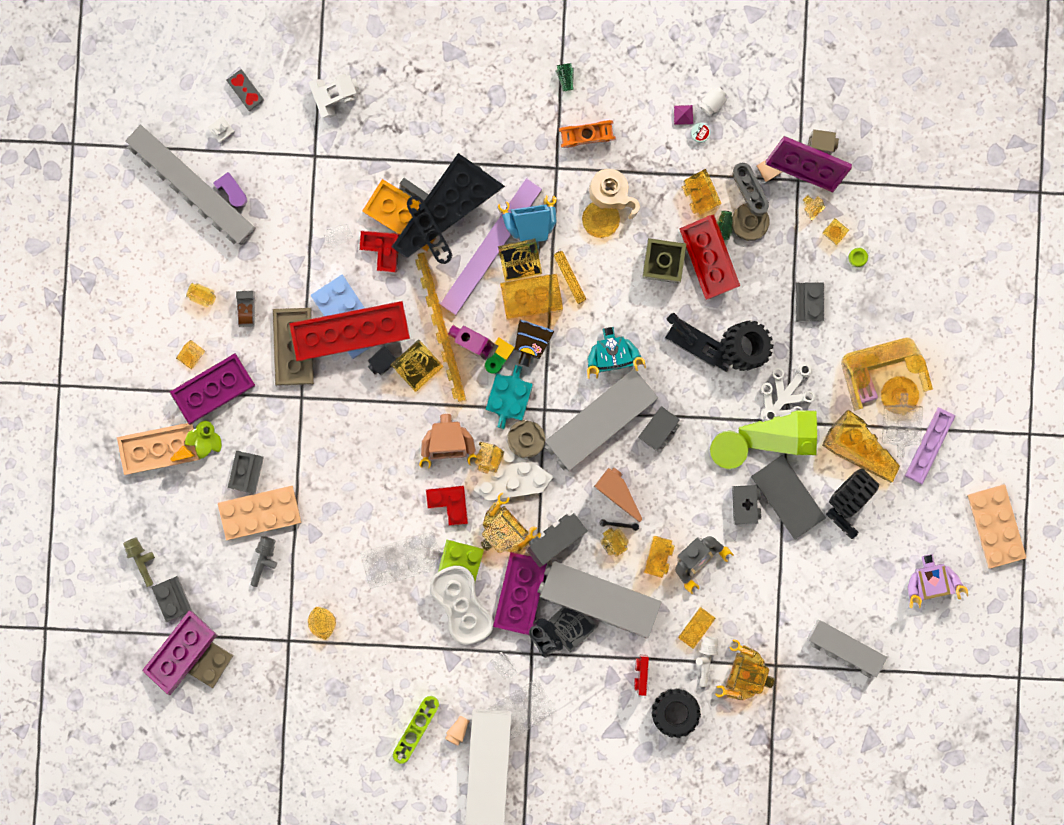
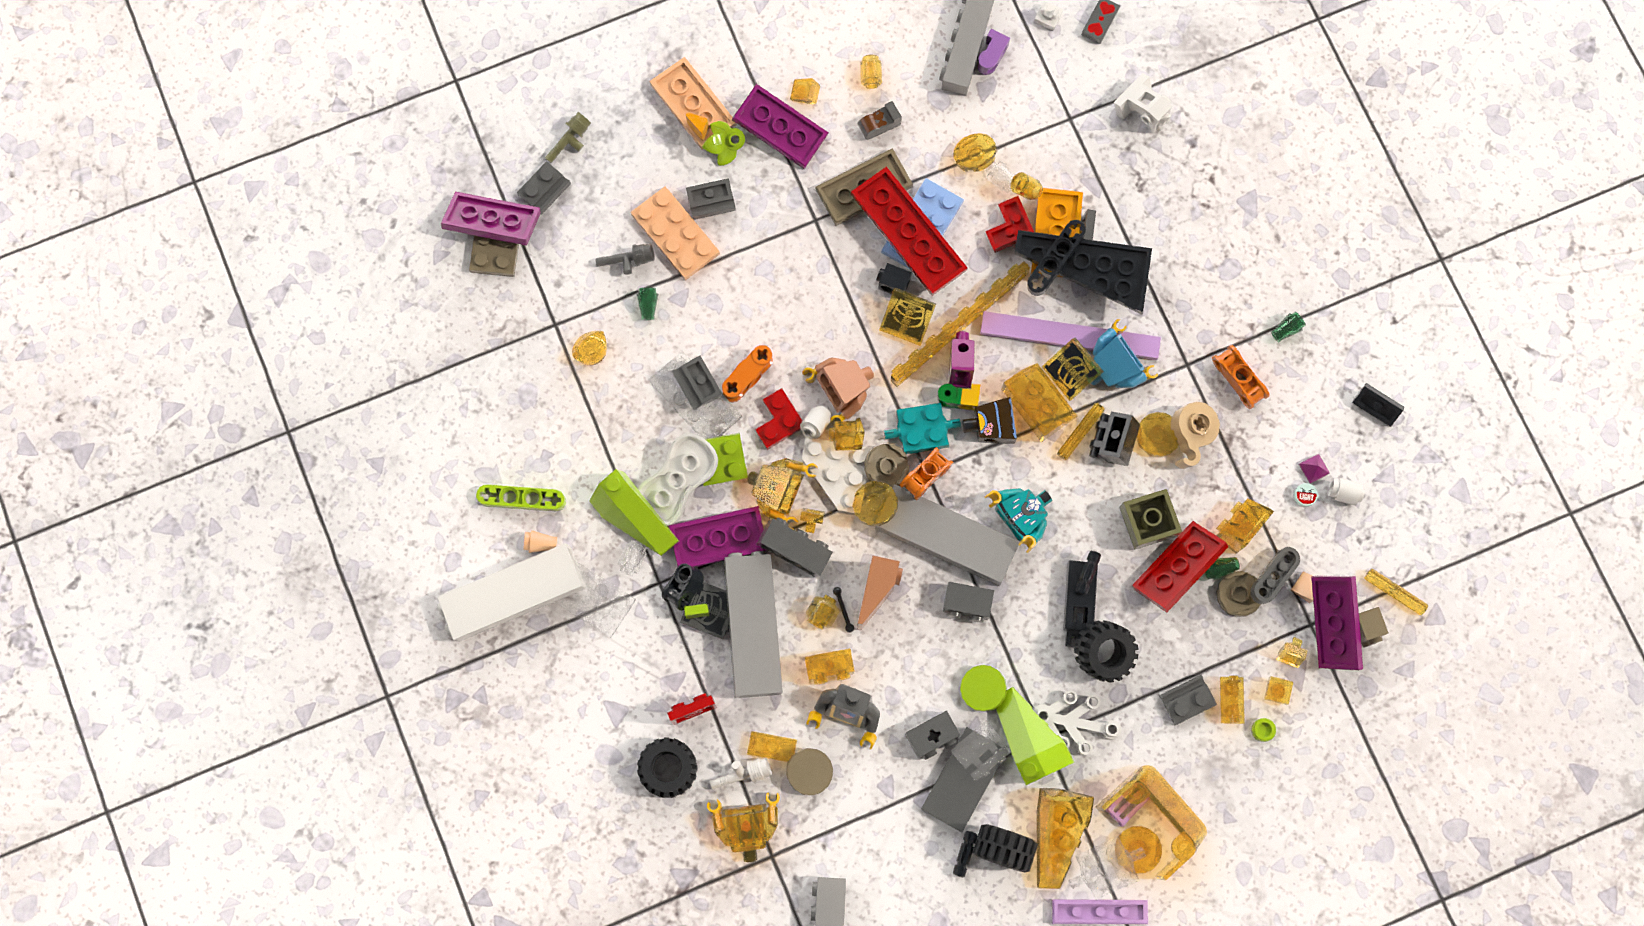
camera: 65 degrees right, 10 degrees down
(307, 561) = (647, 302): none -> clear green cone
(309, 246) = (975, 152): none -> clear yellow tile
(357, 221) = (1026, 186): none -> clear yellow brick
(392, 553) = (697, 383): none -> dark grey plate
(402, 510) = (747, 373): none -> orange piece
(466, 476) = (815, 422): none -> white brick
(466, 651) = (627, 509): none -> lime wedge
(538, 515) = (812, 517): none -> clear yellow tile
(551, 421) = (926, 473): none -> orange piece
(553, 462) = (875, 503): none -> clear yellow tile
(569, 636) = (696, 611): none -> lime tile
(588, 255) = (1114, 438): none -> black brick
(659, 41) = (1378, 404): none -> black plate
(728, 608) = (809, 771): none -> dark tan tile
(769, 477) = (975, 745): none -> clear plate
(805, 104) = (1396, 591): none -> clear yellow axle
(825, 269) = (1232, 699): none -> clear yellow hinge

